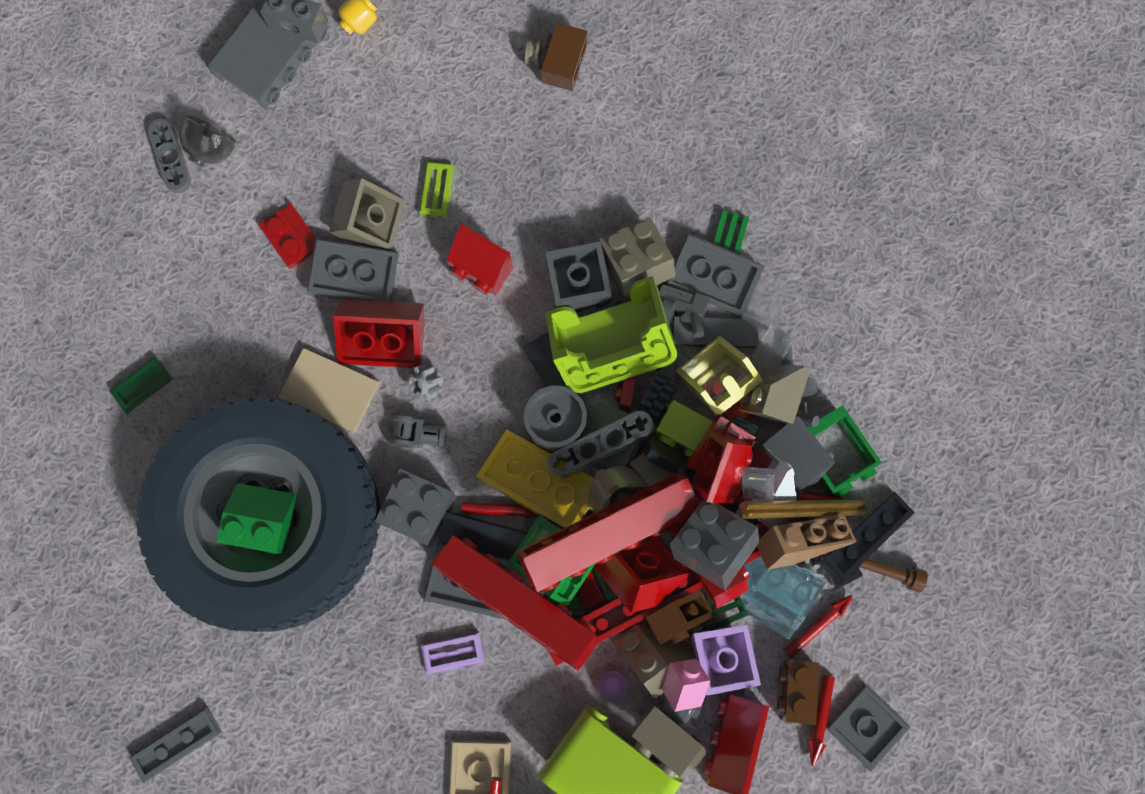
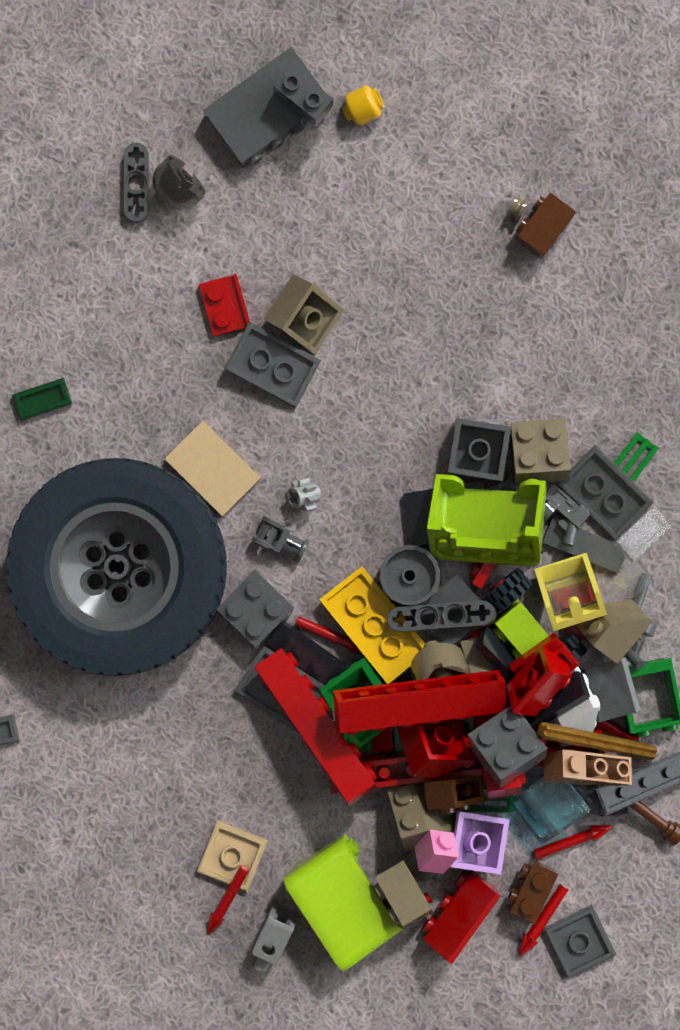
camera: 15 degrees right, 10 degrees up
(257, 519) = (116, 573): green slope -> none
(379, 333) = (277, 433): red slope -> none
(428, 658) = (267, 749): lavender tile -> none
(434, 211) = (367, 332): lime tile -> none
(479, 261) = (392, 401): red slope -> none
(612, 685) = (373, 825): medium lavender plate -> none
(758, 483) = (564, 709): clear tile -> none

